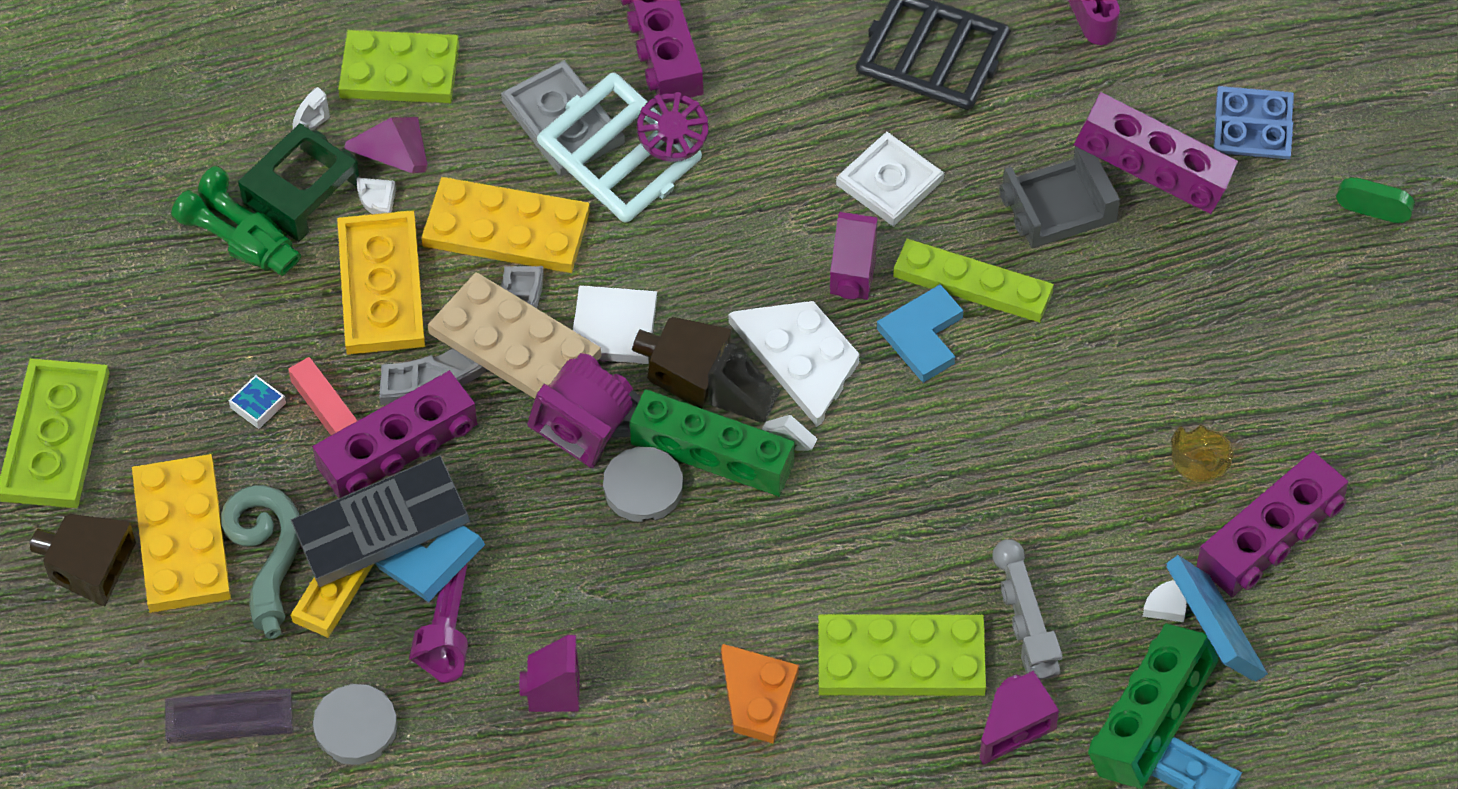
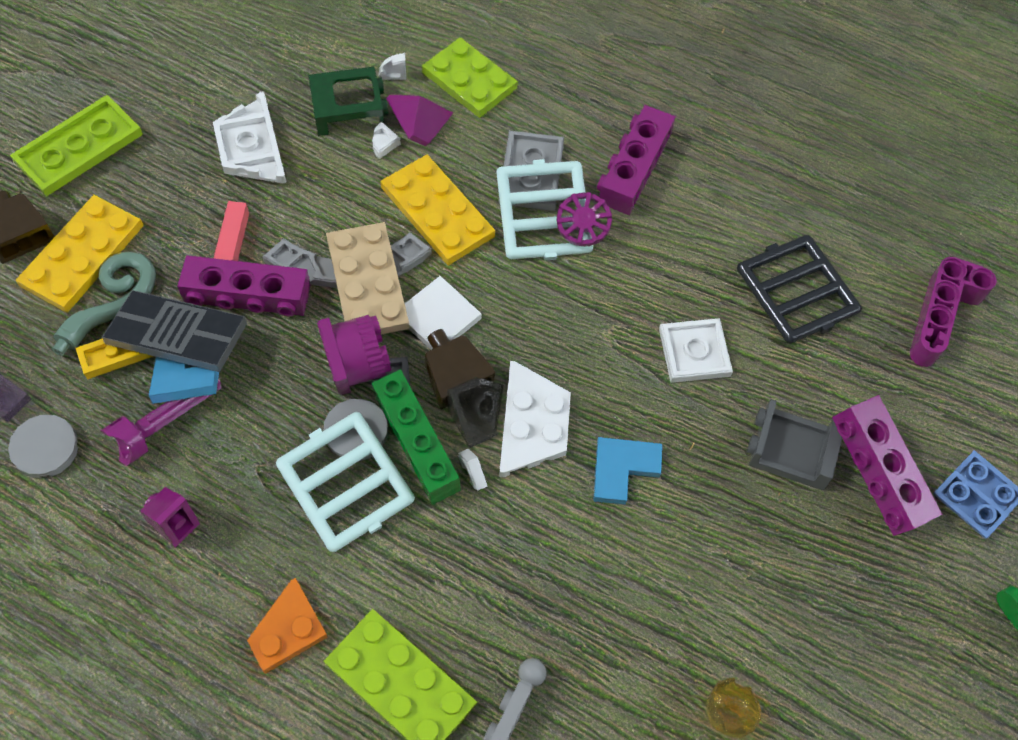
camera: 35 degrees right, 5 degrees up
(240, 297) = (249, 142): none -> white wing
(256, 237) = (293, 114): green piece -> none
(257, 401) = (198, 208): tile -> none
(380, 282) = (331, 190): yellow plate -> none
(677, 483) = (319, 515): none -> light aqua bar
(853, 256) = (618, 383): magenta slope -> none
(973, 280) = (689, 458): lime plate -> none

